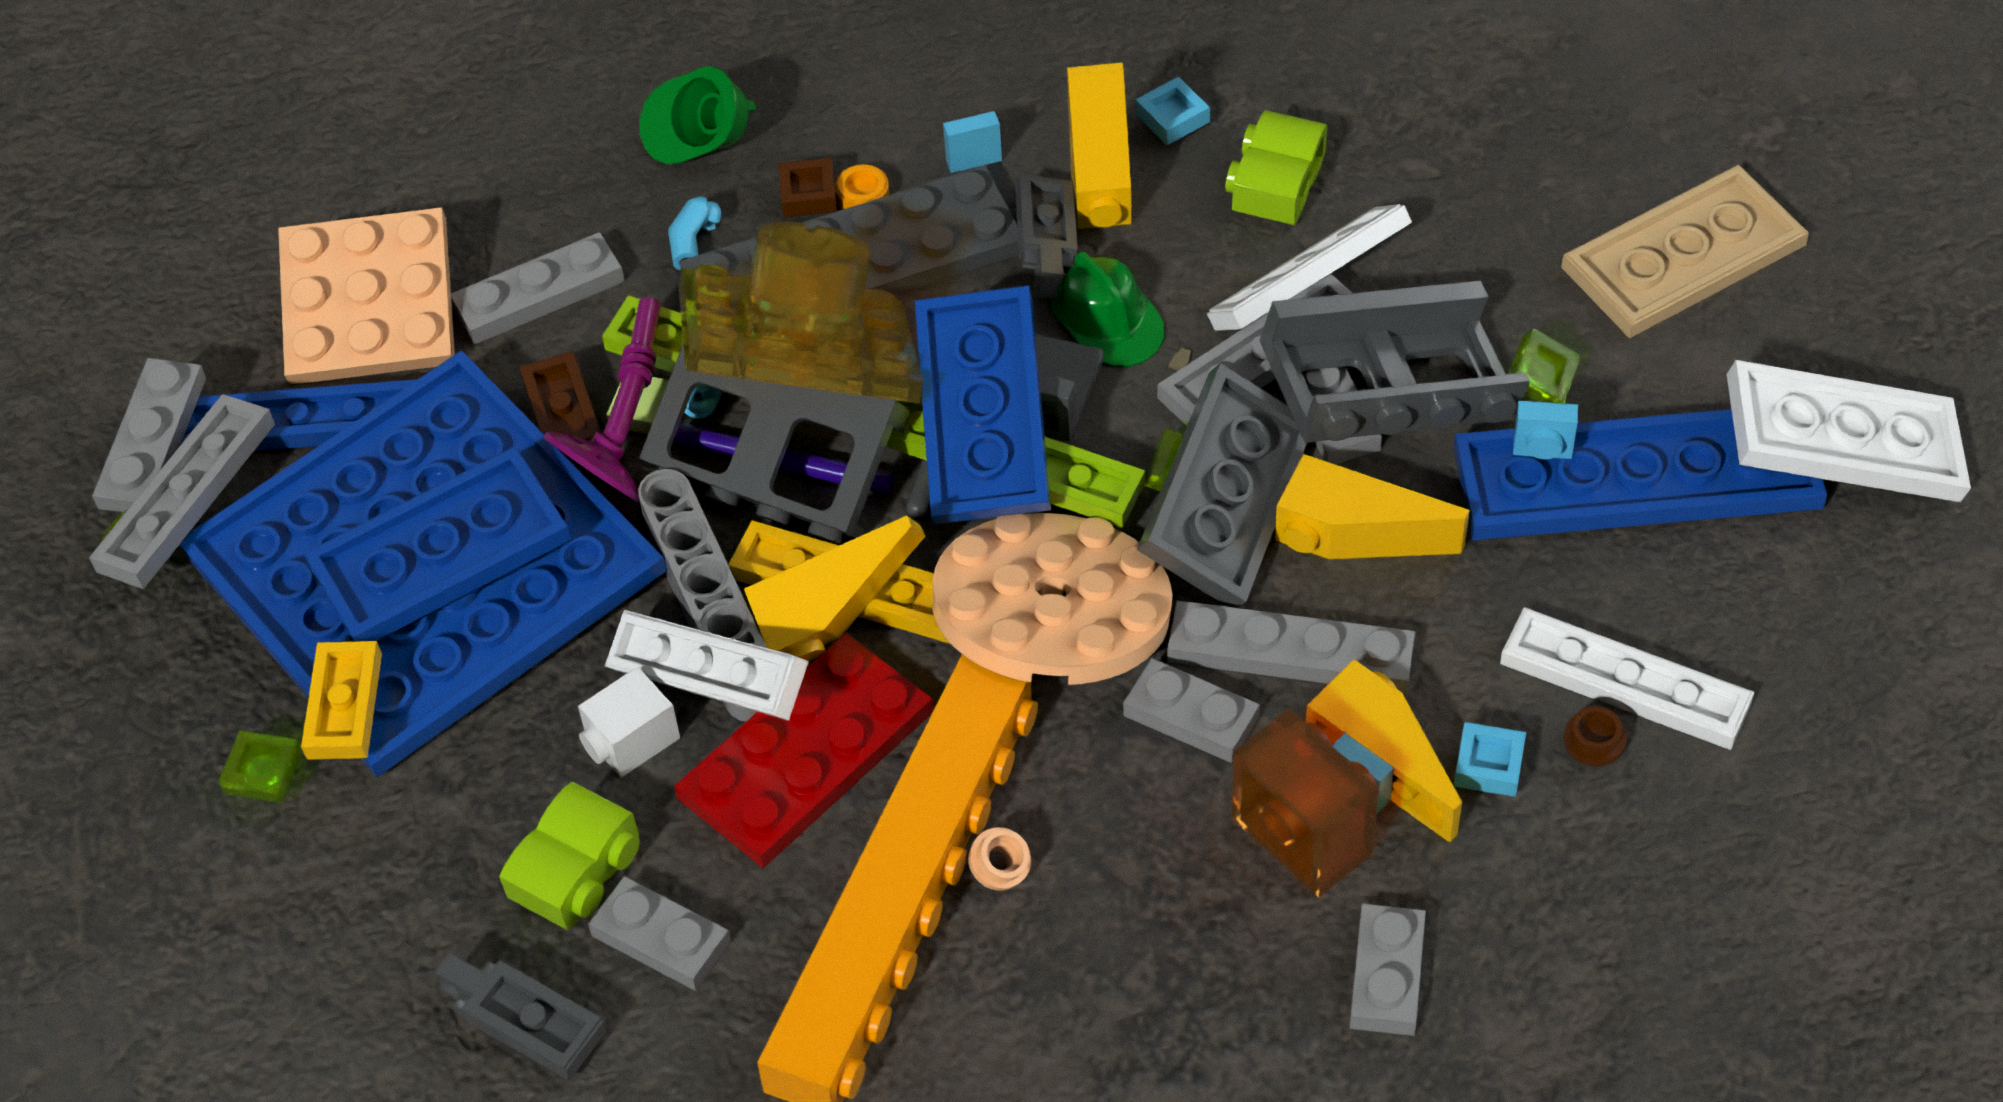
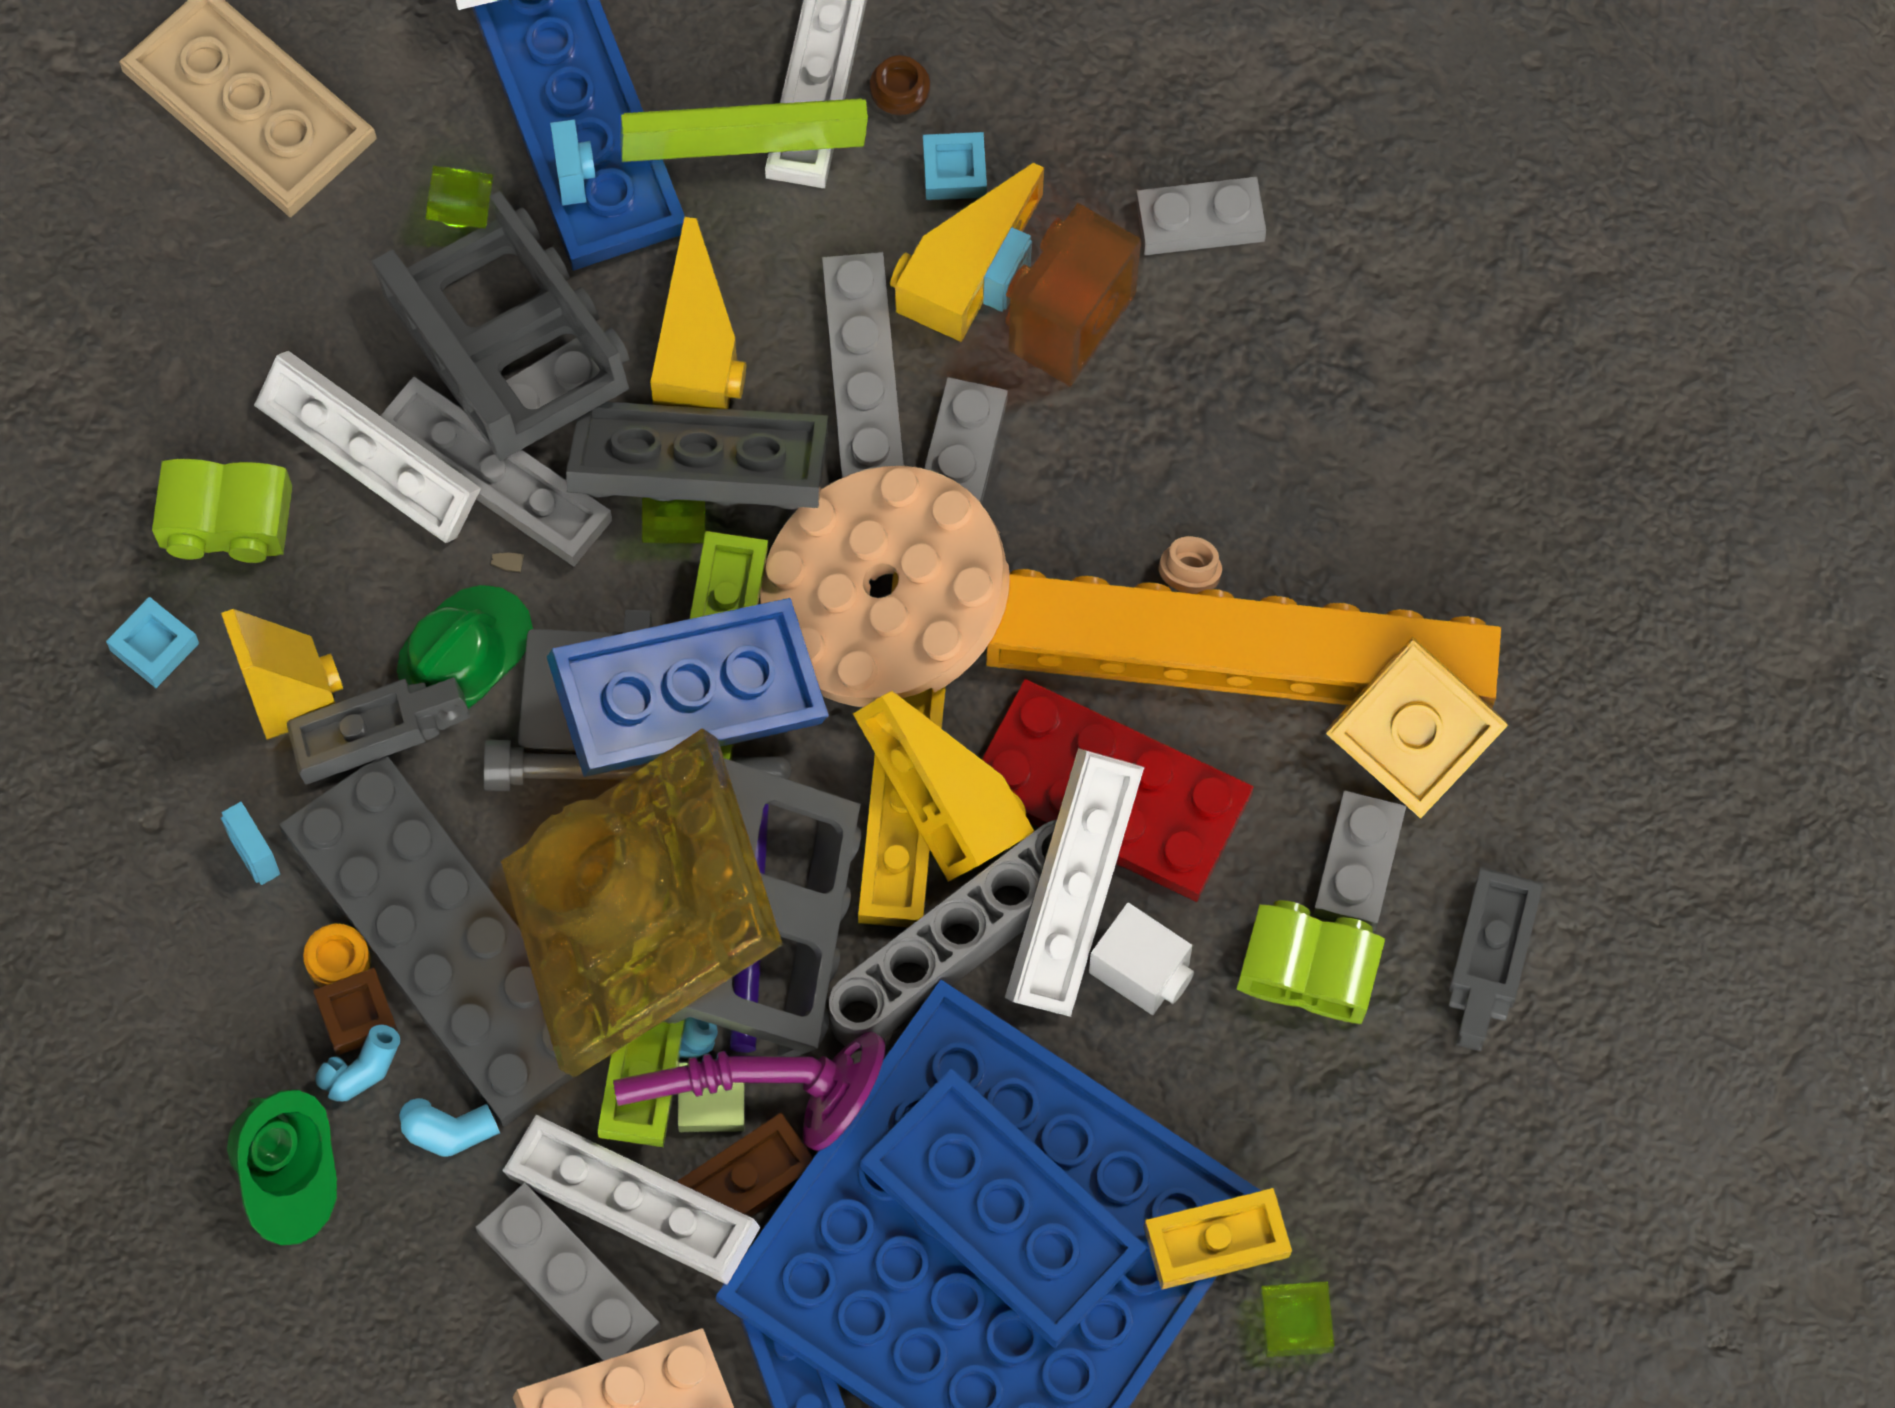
camera: 110 degrees left, 15 degrees up
(564, 322) = (632, 1199): none -> white tile
(755, 990) = (1416, 727): none -> yellow tile
(759, 180) = (369, 1068): none -> medium azure arm
(1553, 574) = (743, 129): none -> lime tile

